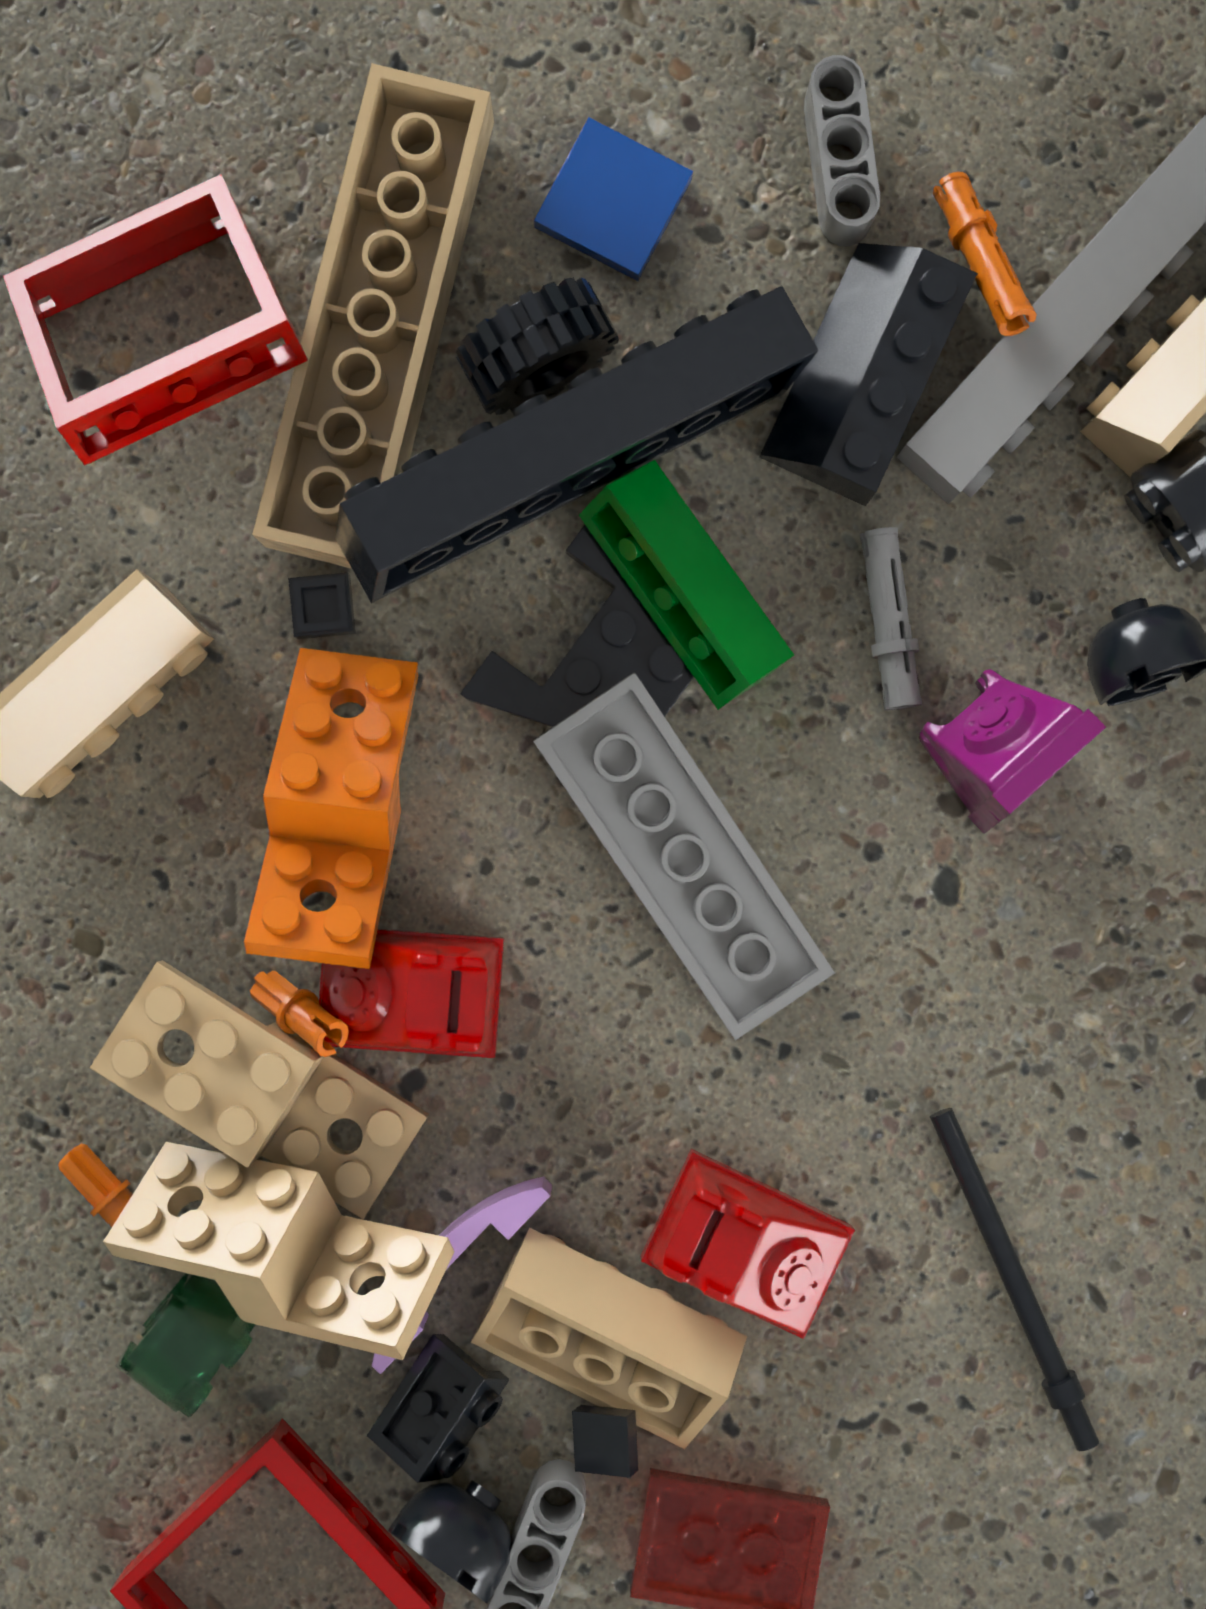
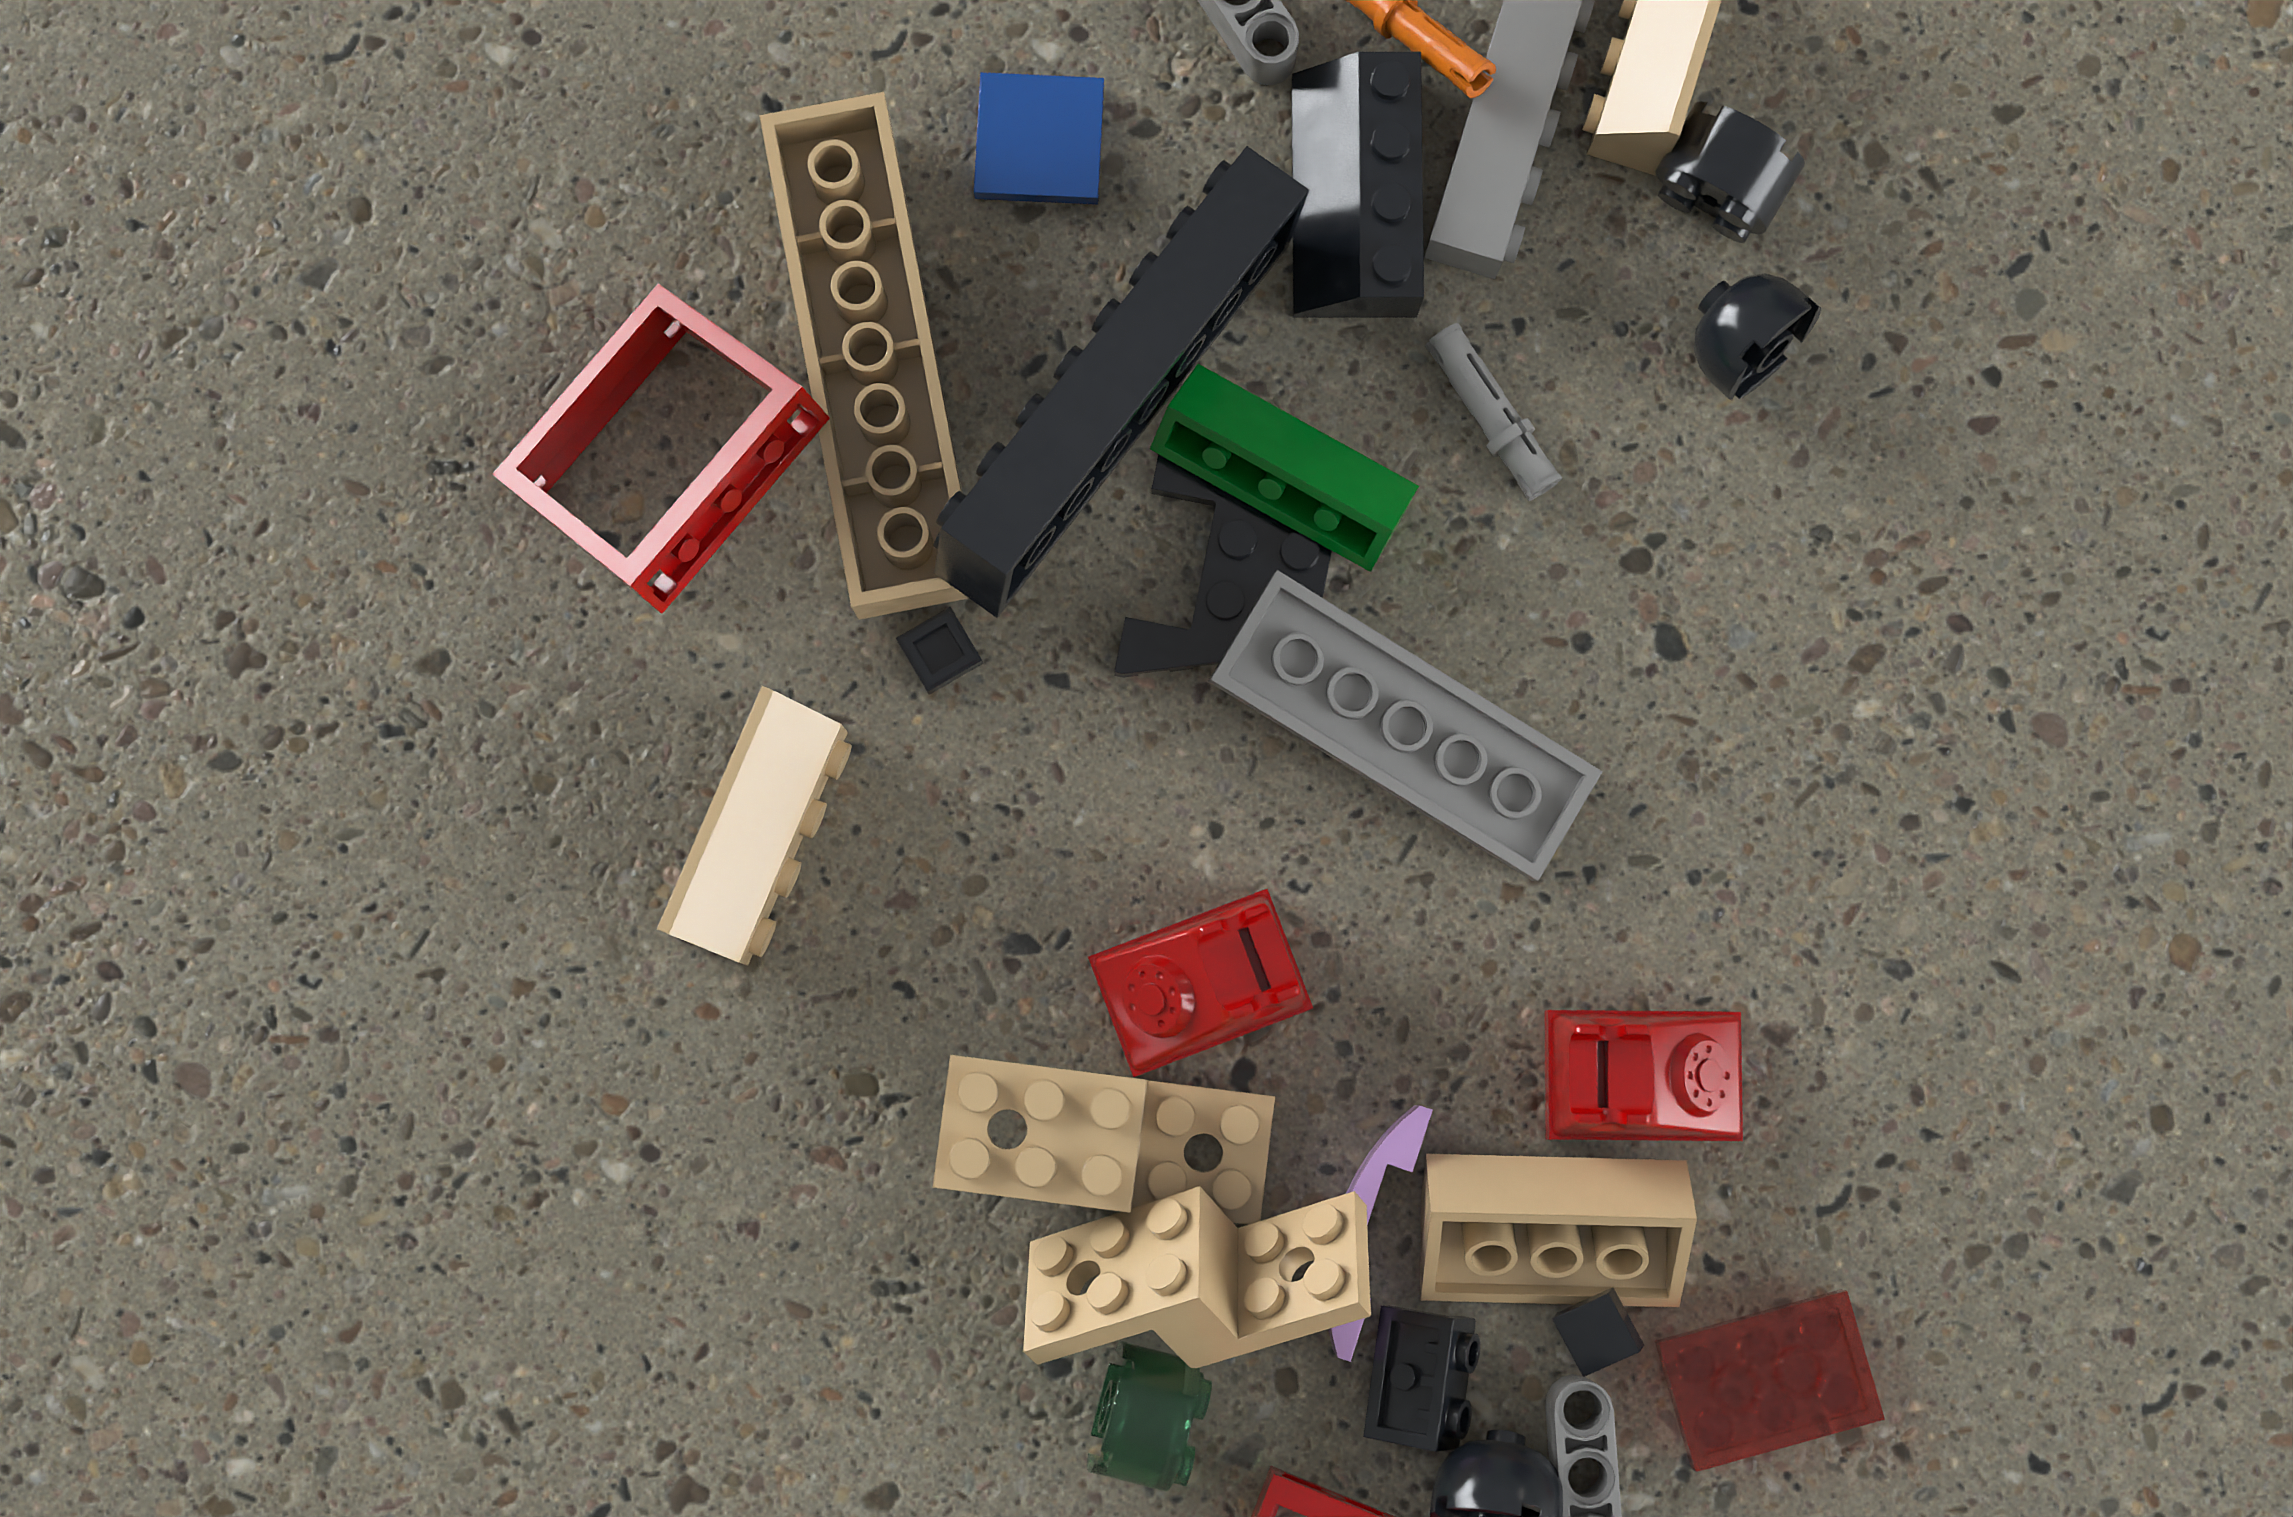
camera: 20 degrees left, 5 degrees down
(95, 1183) = (983, 1315): orange axle -> none
(298, 1012) = (1104, 1048): orange axle -> none
(332, 808) = (1047, 834): orange bracket -> none
(536, 345) = (1039, 307): black bush -> none
(1006, 746) = (1660, 478): magenta piece -> none
(1060, 1384) = (2012, 1070): black bar -> none

